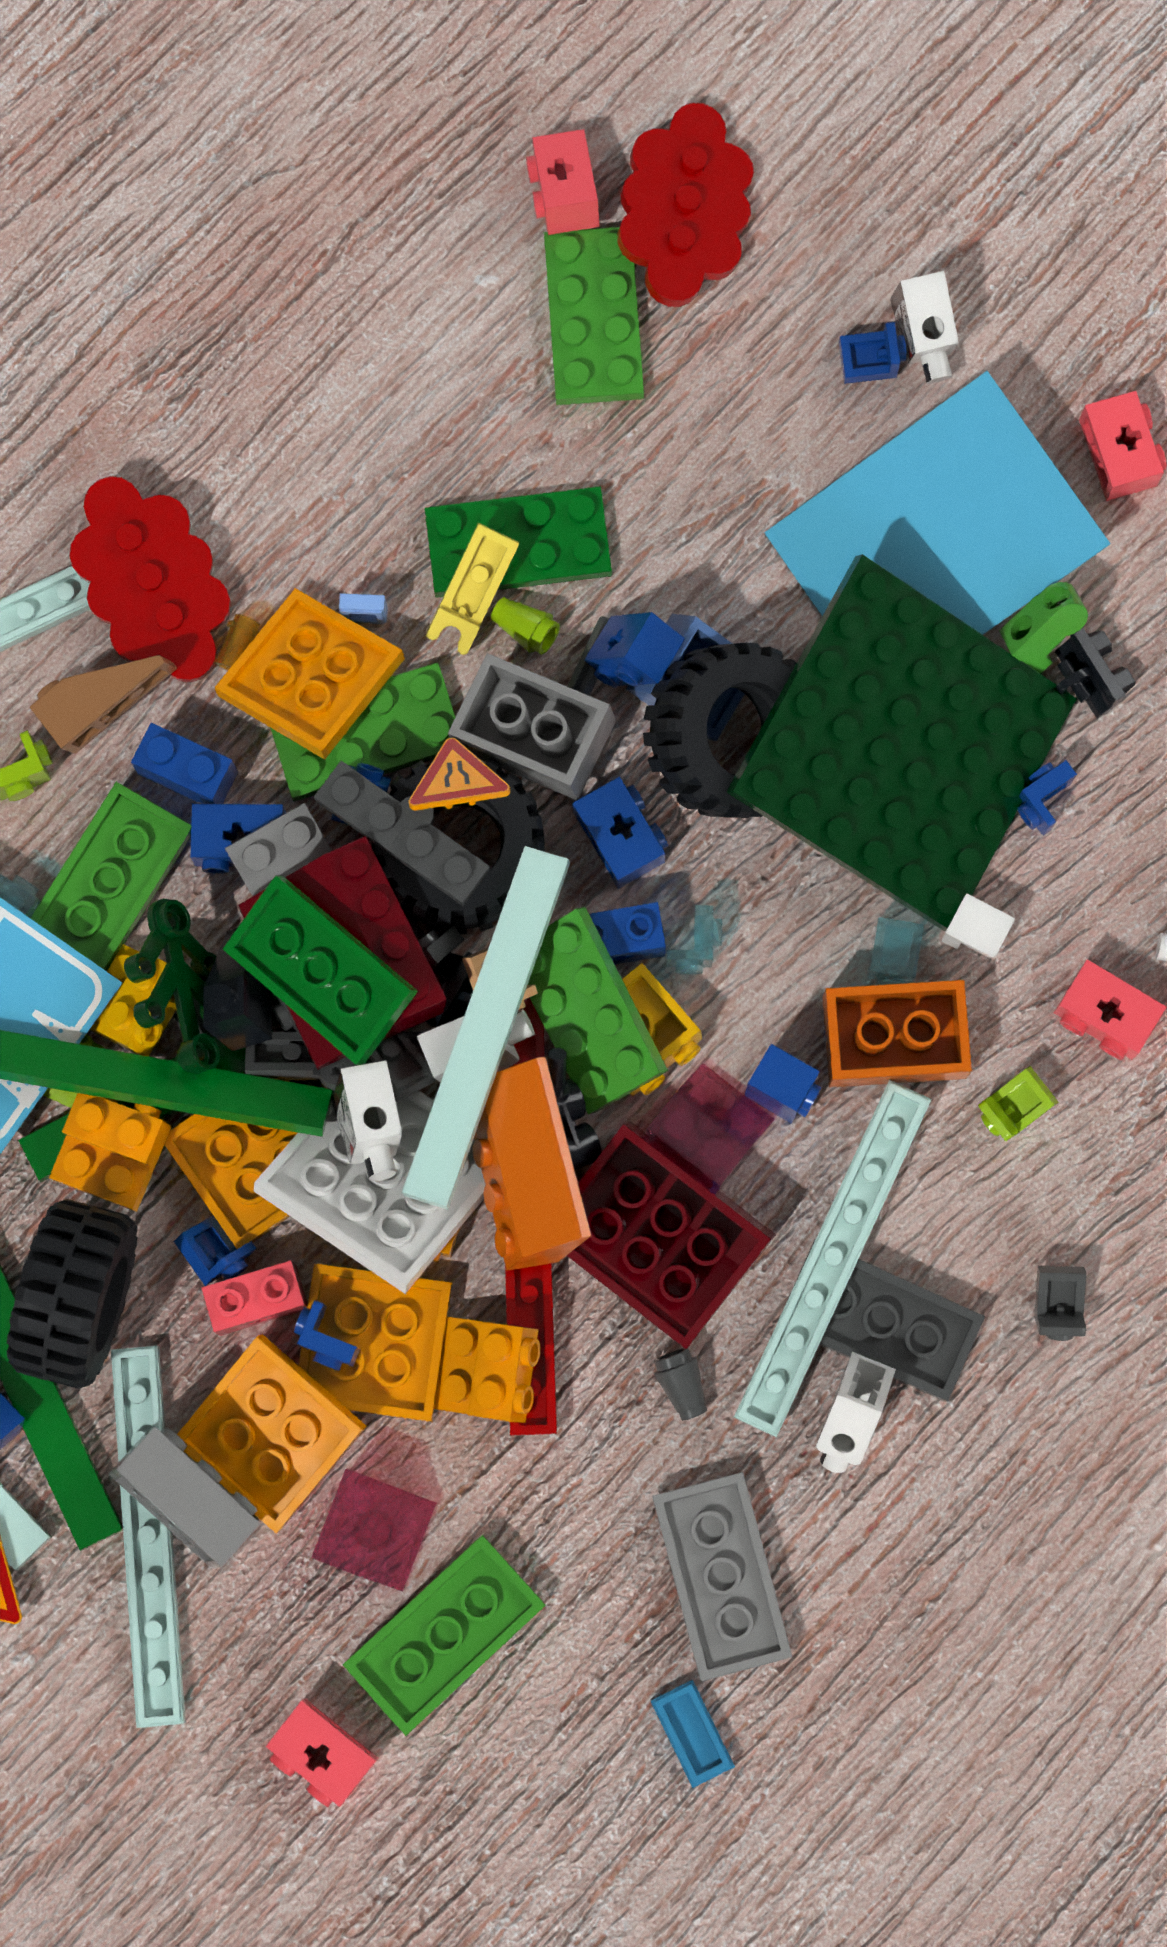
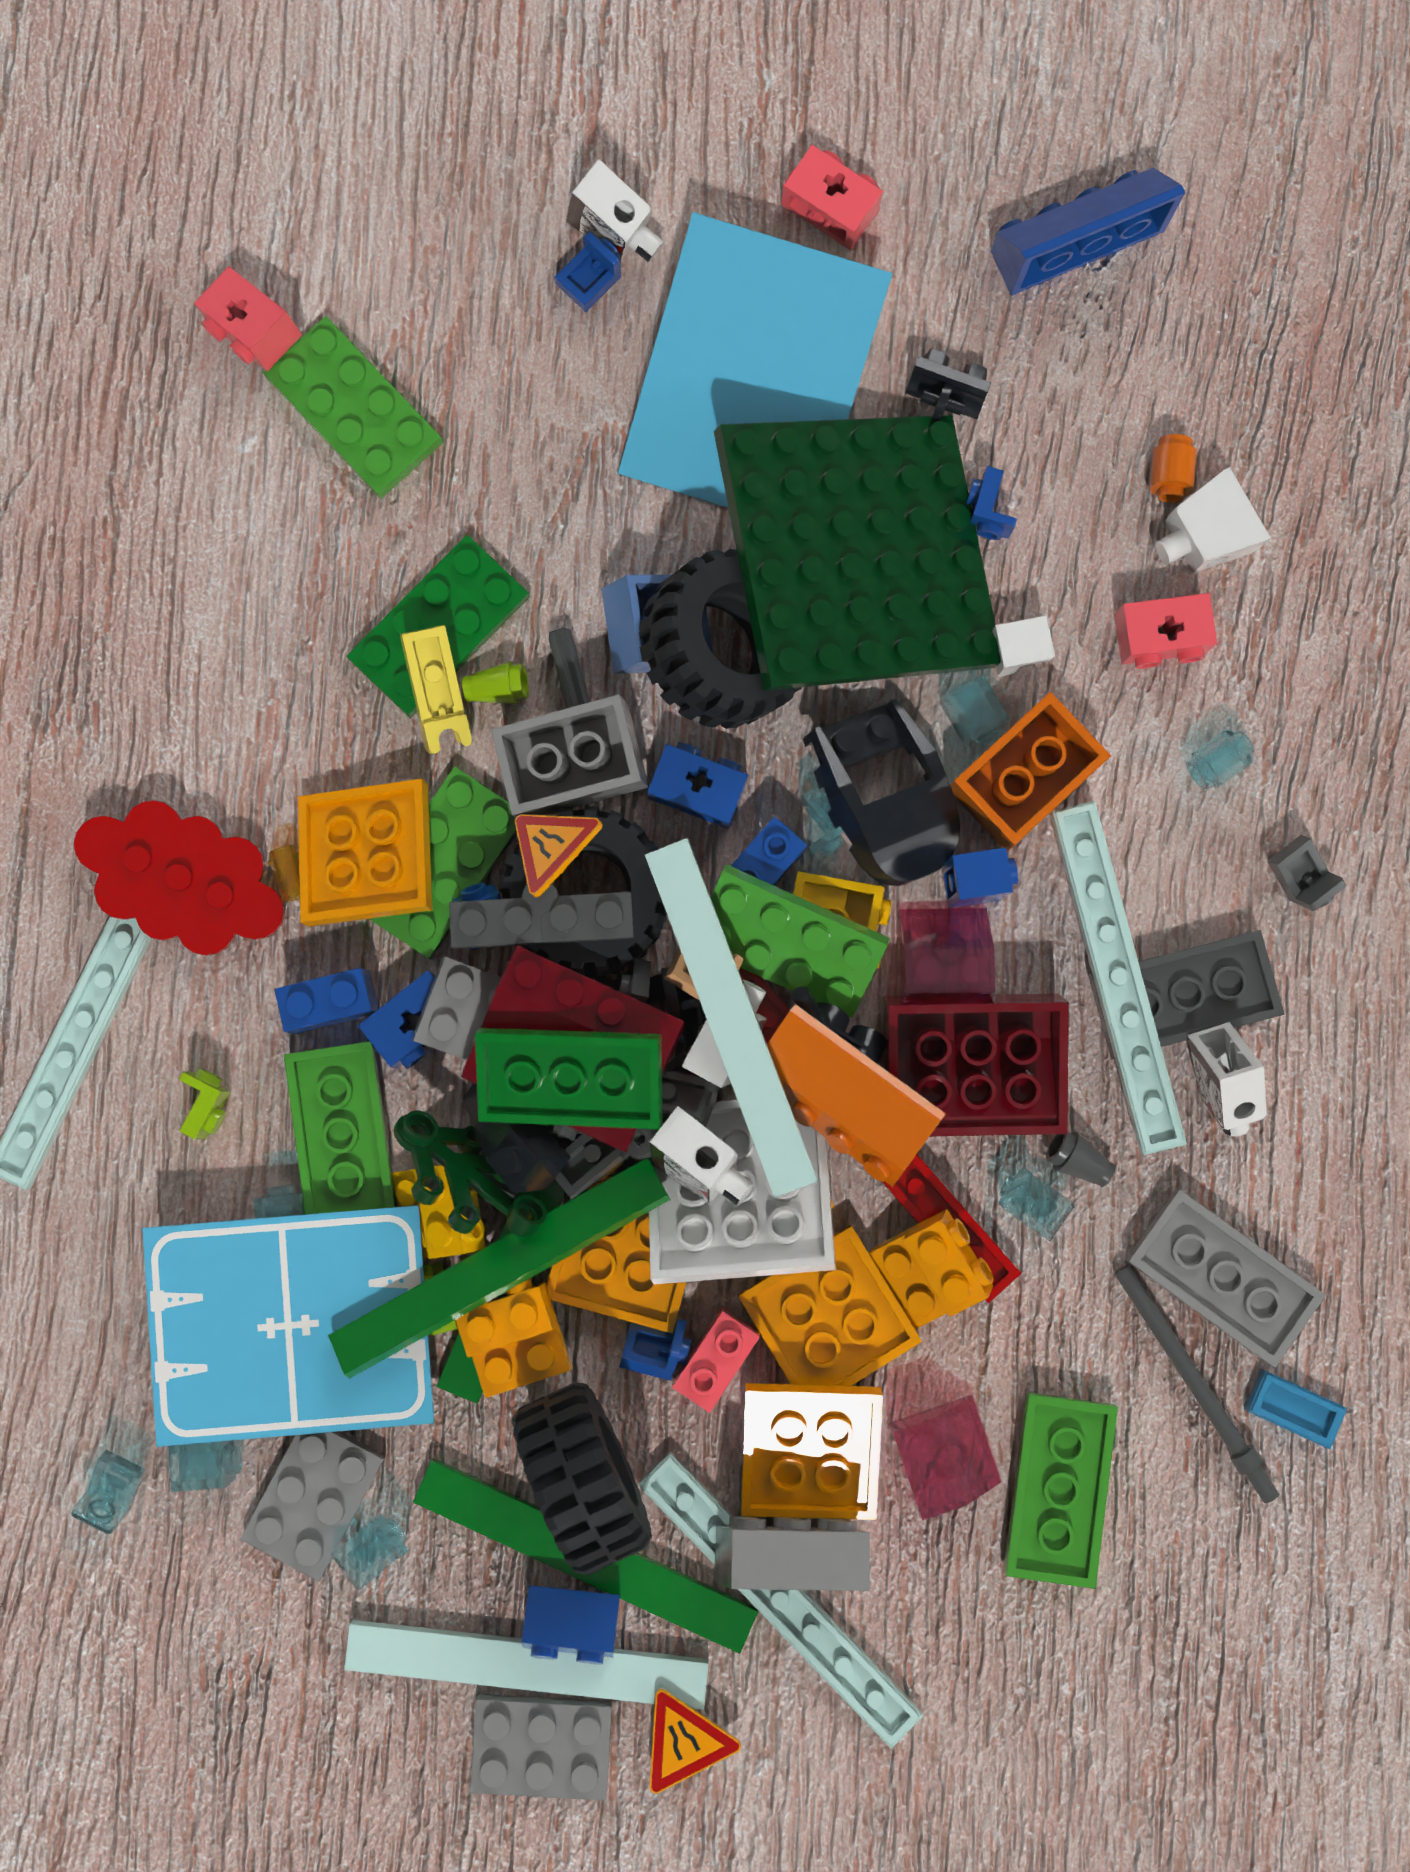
camera: 45 degrees left, 5 degrees up
(90, 702) = (212, 1012): medium nougat slope -> none
(328, 1350) = (807, 1353): blue bracket -> none
(348, 1757) = (1024, 1639): coral brick -> none
(364, 608) = (363, 770): light blue tile -> none
(614, 1386) = (1035, 1203): none -> clear light blue bracket
(616, 1737) = (1243, 1456): none -> dark grey bar
(633, 650) = (599, 638): blue brick -> none
(685, 204) = (353, 266): red plate -> none
(751, 999) = (903, 832): none -> black slope
(1016, 1104) = (1155, 754): lime bracket -> none
(1044, 625) = (889, 375): bright green leg -> none
(1068, 1152) = (1220, 759): none -> clear light blue brick

